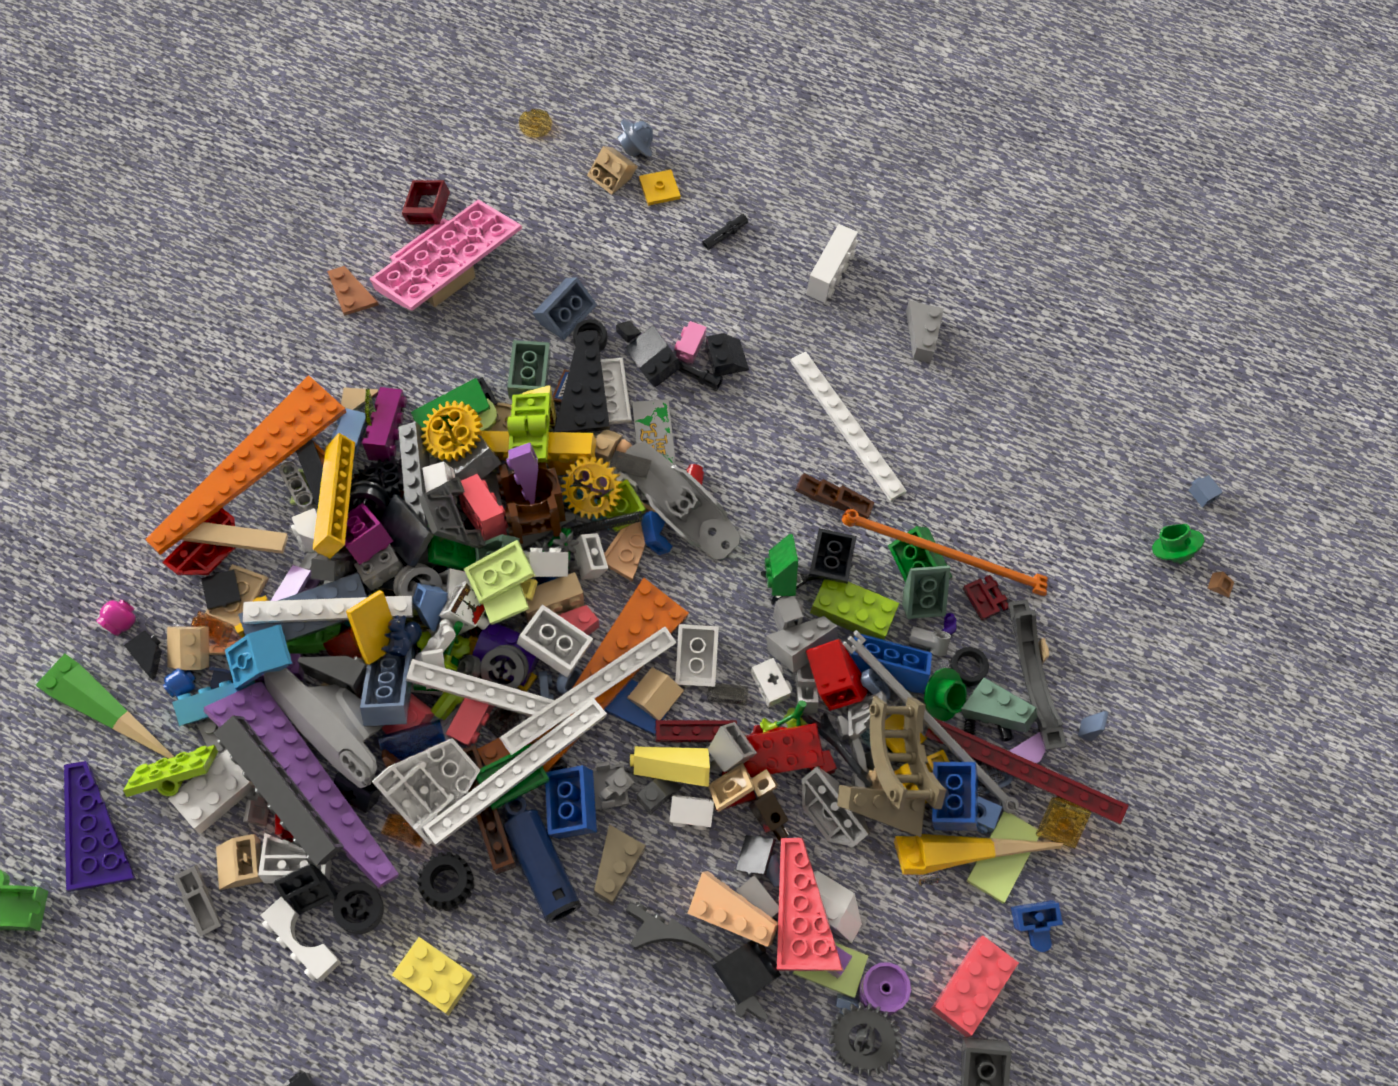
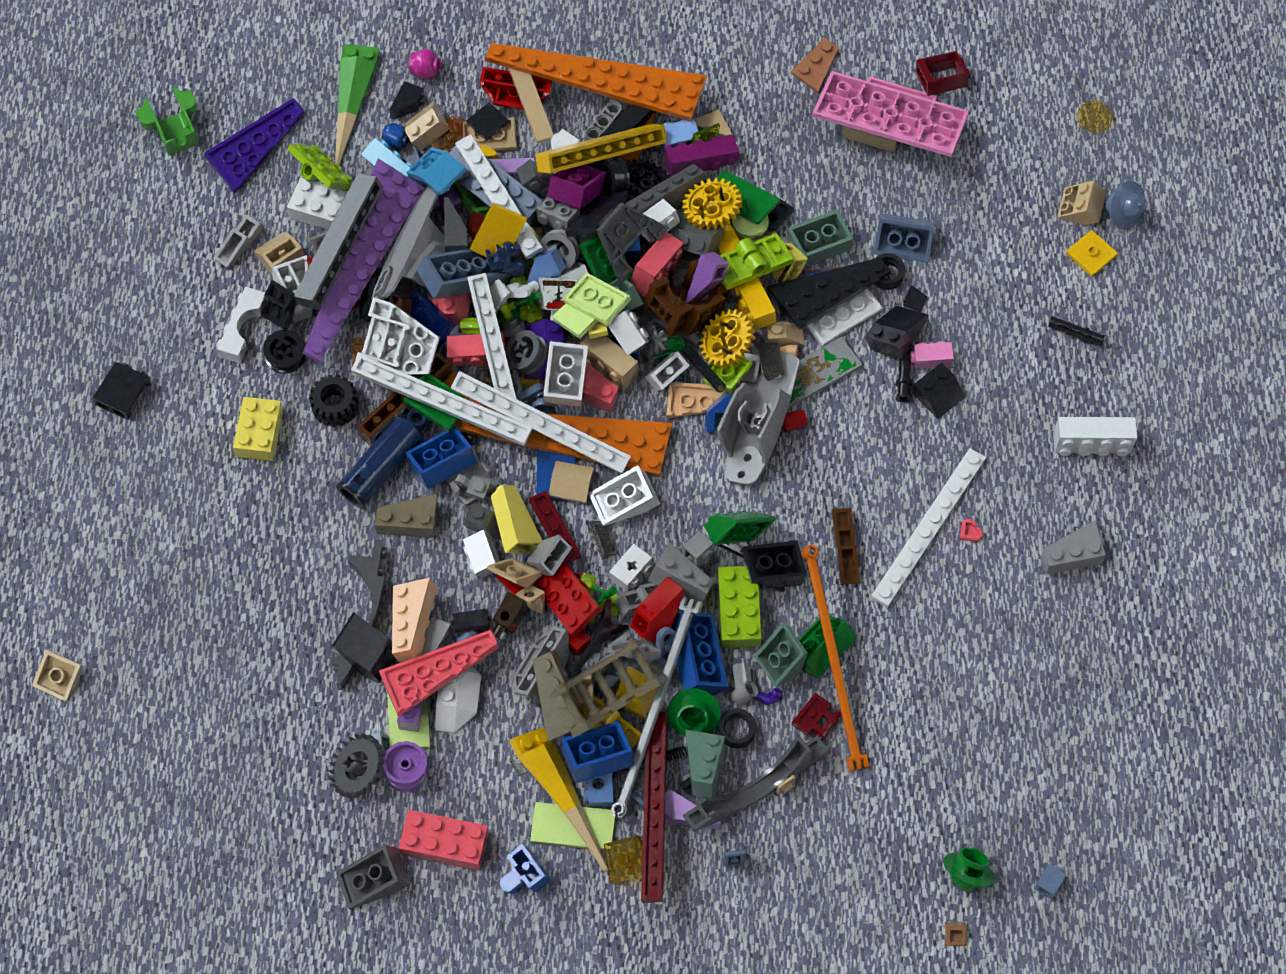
camera: 70 degrees right, 0 degrees up
(866, 396) = (970, 531): none -> coral tile

